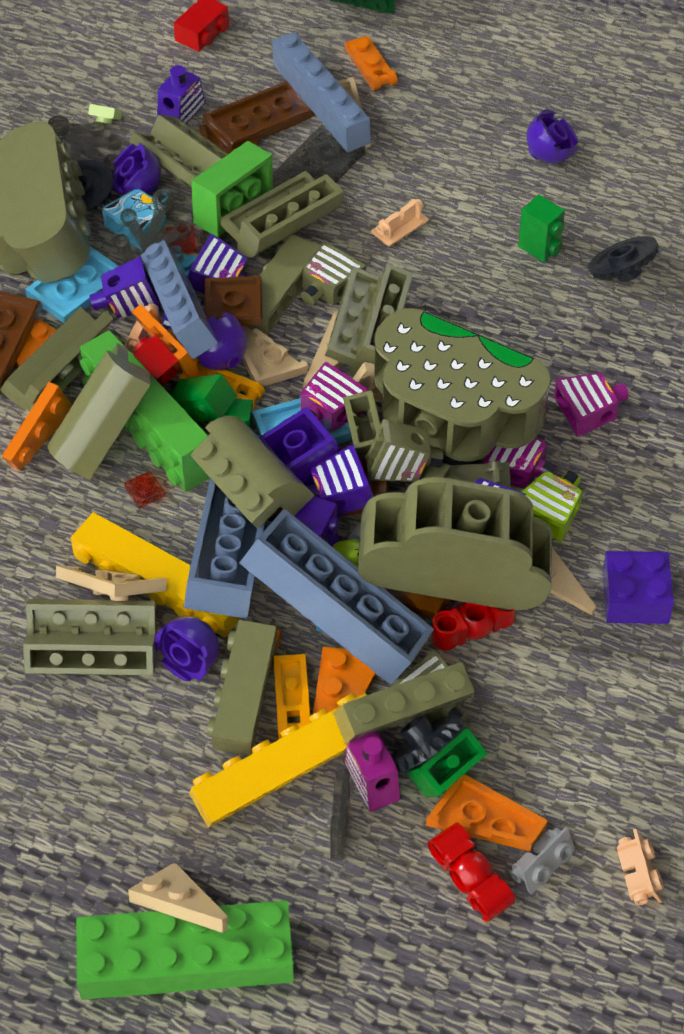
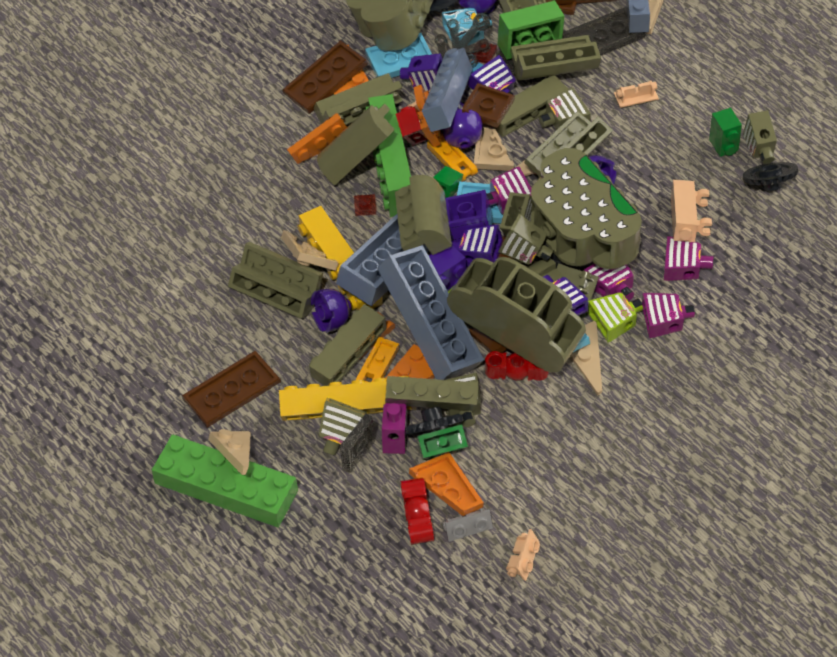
camera: 30 degrees right, 0 degrees up
(111, 814) = (231, 389): none -> reddish brown tile
(204, 396) = (429, 160): green brick -> none
(300, 798) = (337, 423): none -> olive torso
(550, 138) = (776, 72): dark purple cylinder -> none
(557, 341) = (685, 212): none -> light nougat brick
(585, 218) = (760, 136): none -> olive torso
(609, 477) = (664, 313): none -> magenta torso
(637, 587) = (634, 389): dark purple brick -> none

